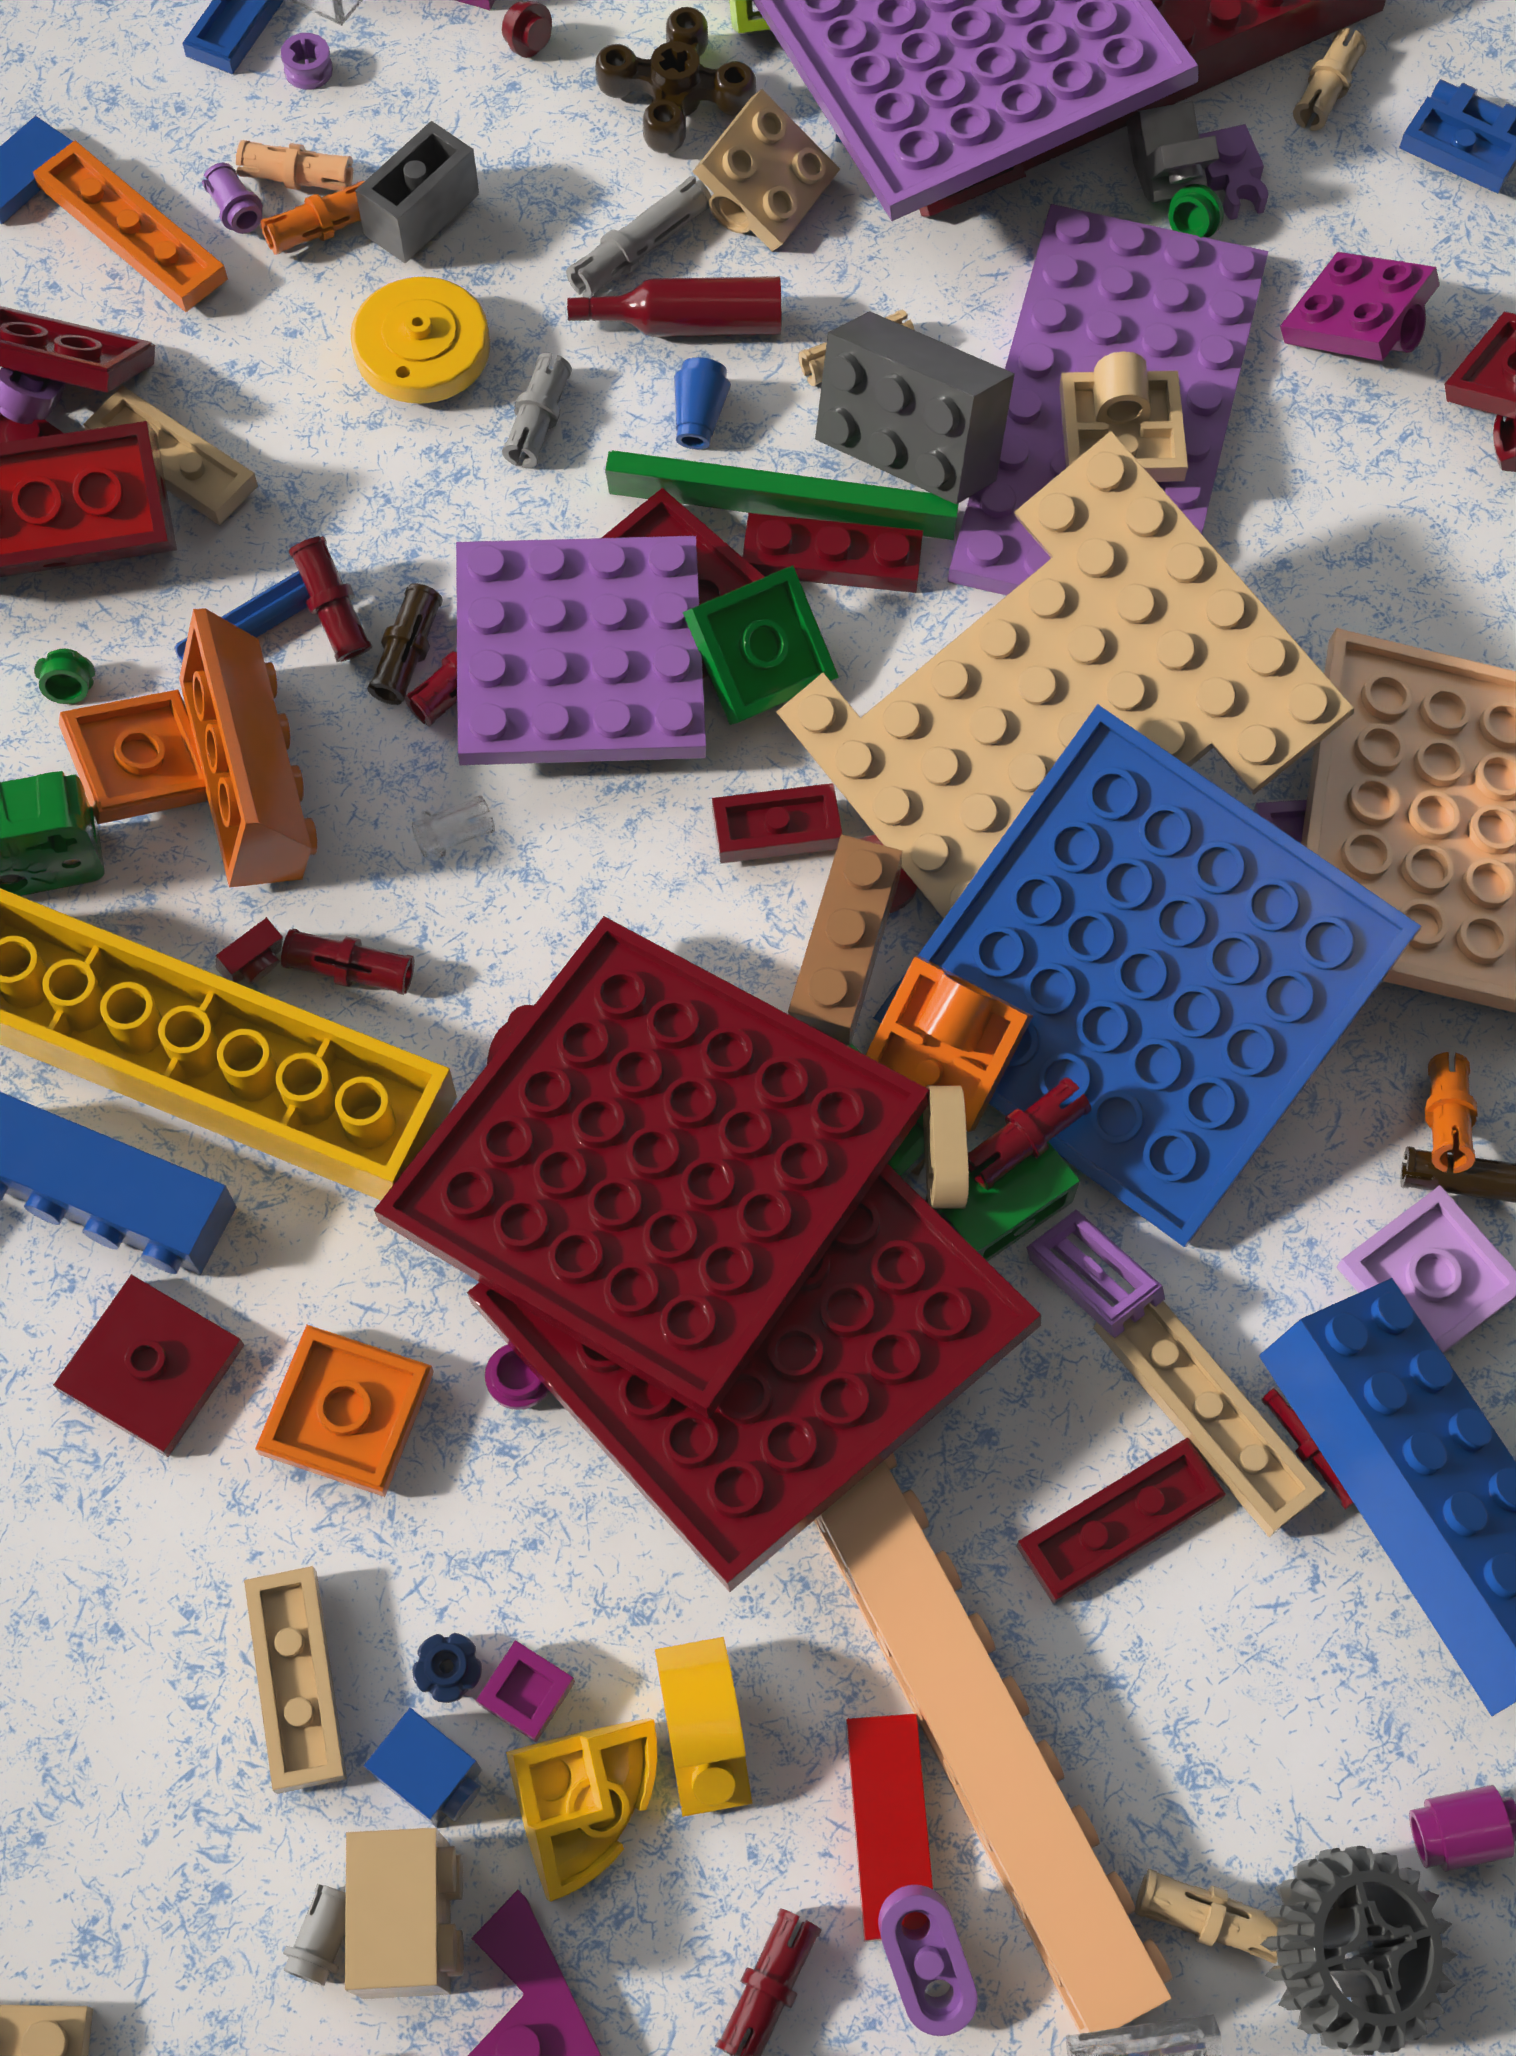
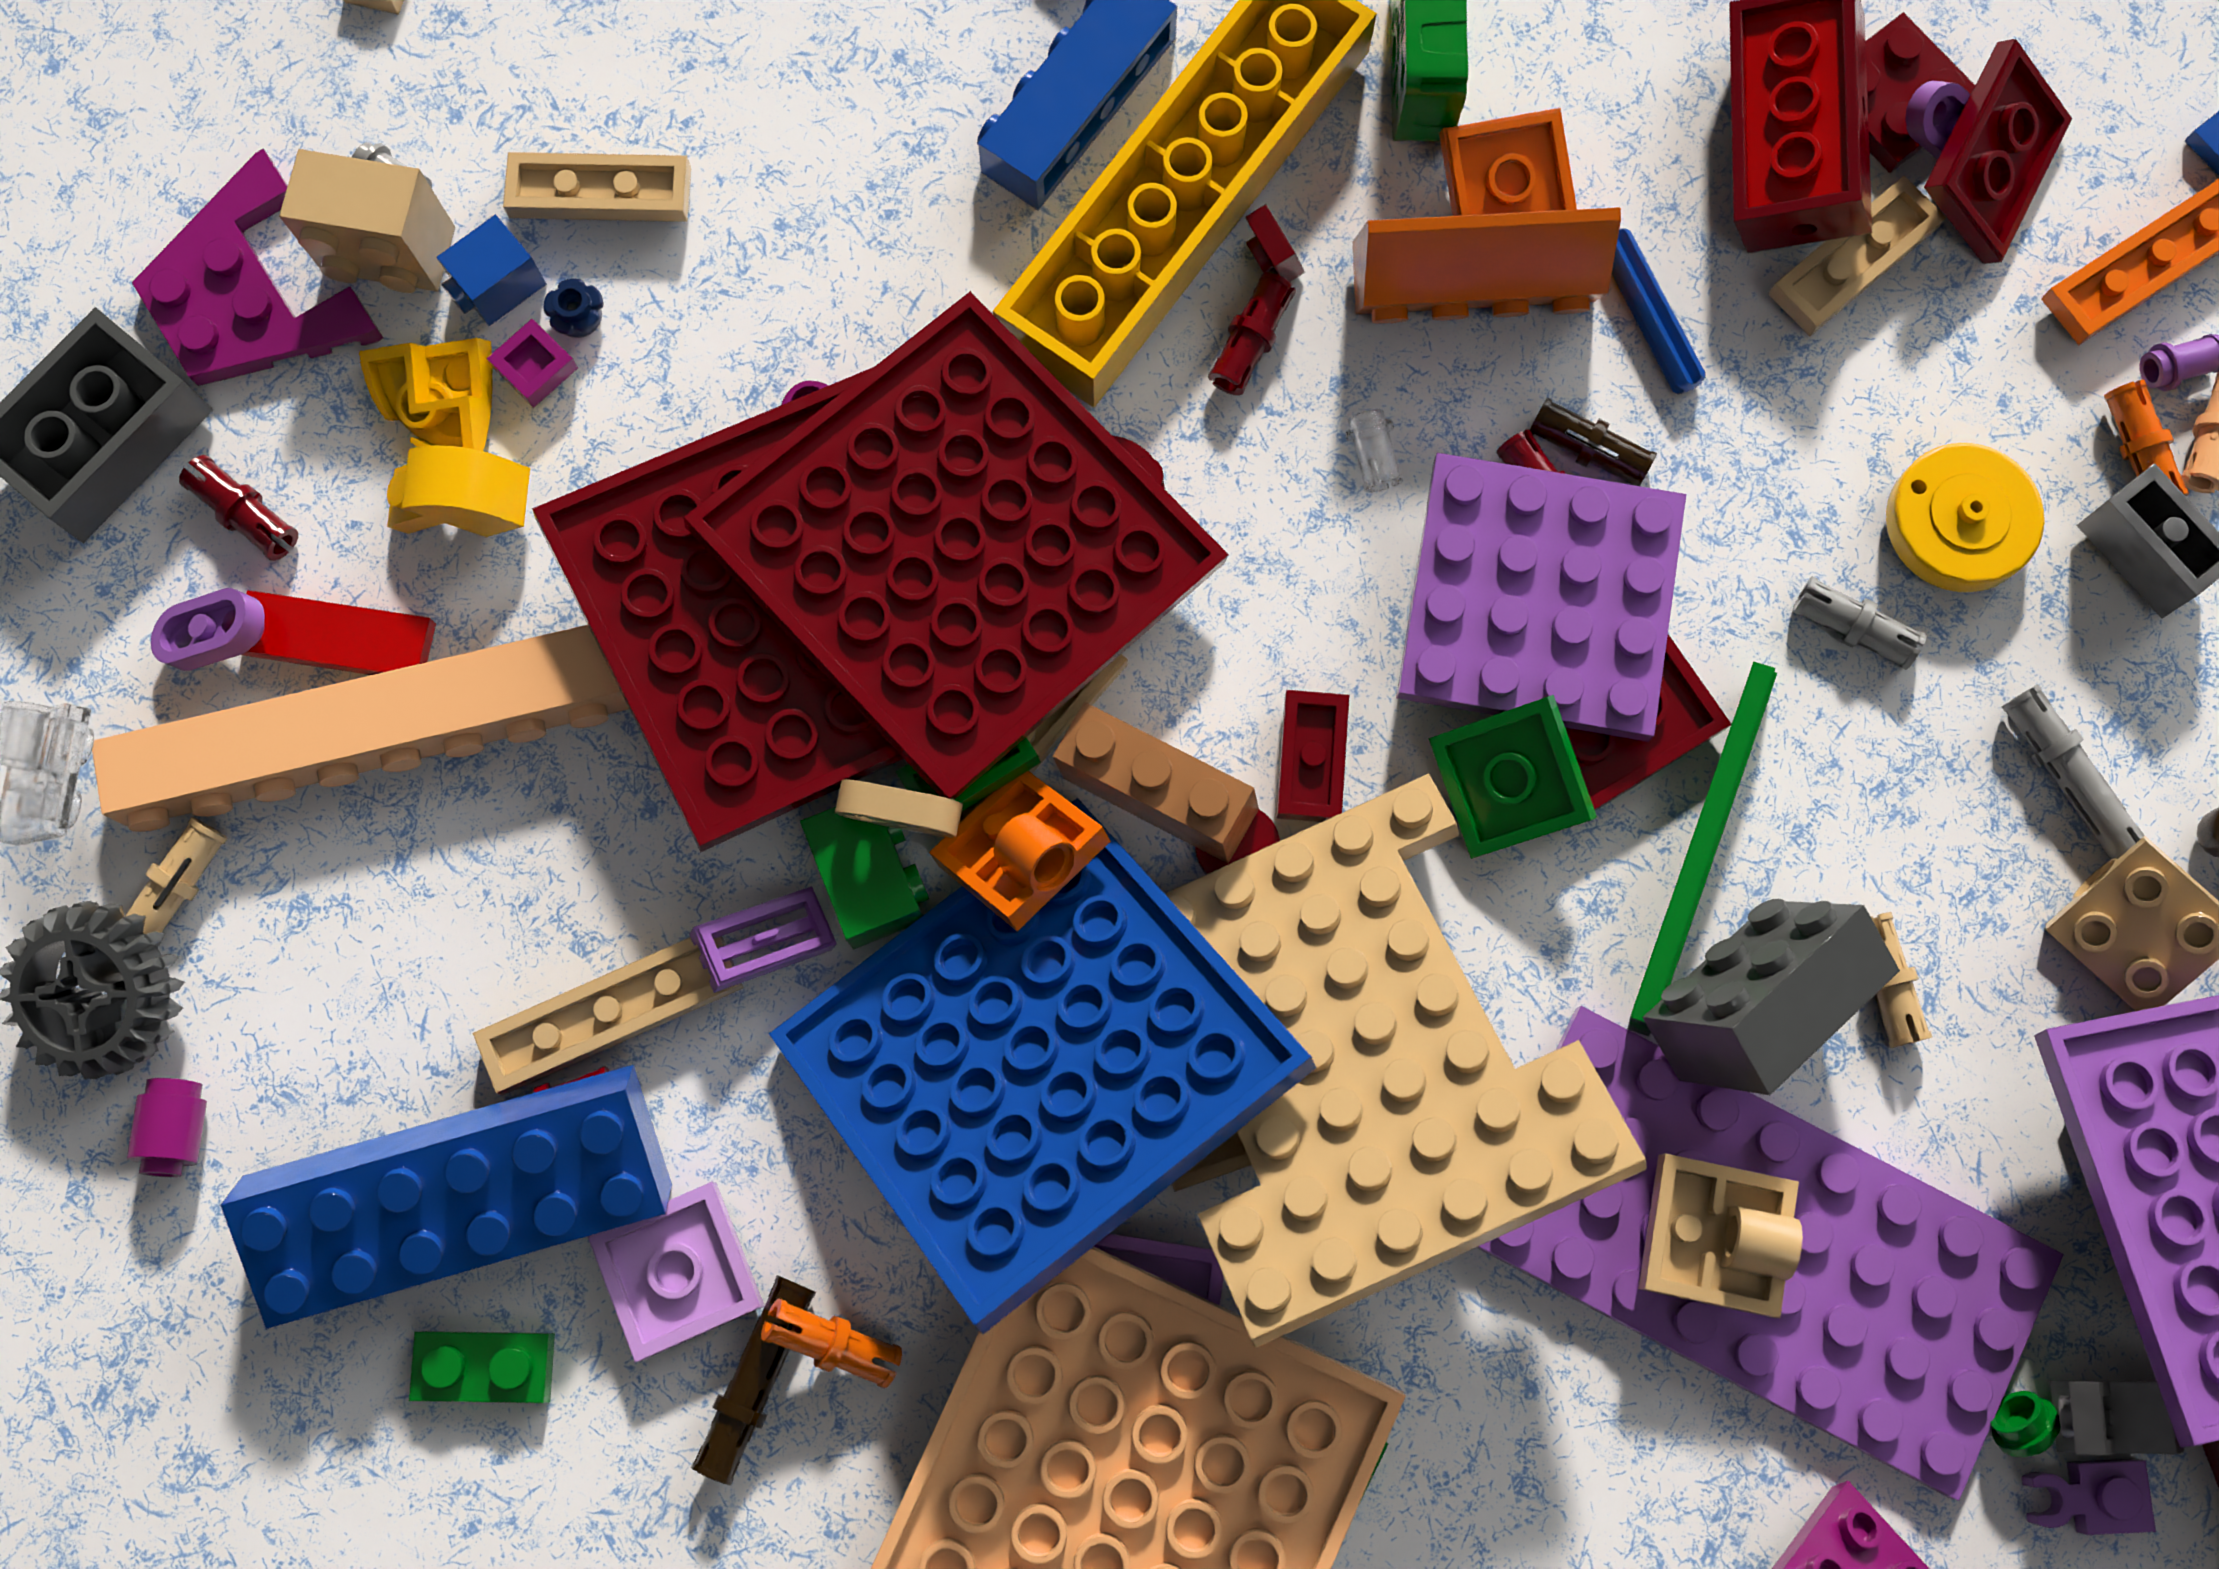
camera: 105 degrees right, 10 degrees up
(64, 676) = (1613, 128): green plate -> none
(149, 1365) = (904, 116): dark red plate -> none
(330, 598) = (1650, 373): dark red pin -> none
(345, 1410) = (817, 262): orange plate -> none
(691, 307) = (1968, 810): dark red piece -> none
(699, 399) = (1842, 790): blue cone -> none
(835, 551) = (1629, 892): dark red plate -> none
(1027, 1133) = (895, 892): dark red pin -> none
(1120, 1520) = (534, 904): dark red tile -> none

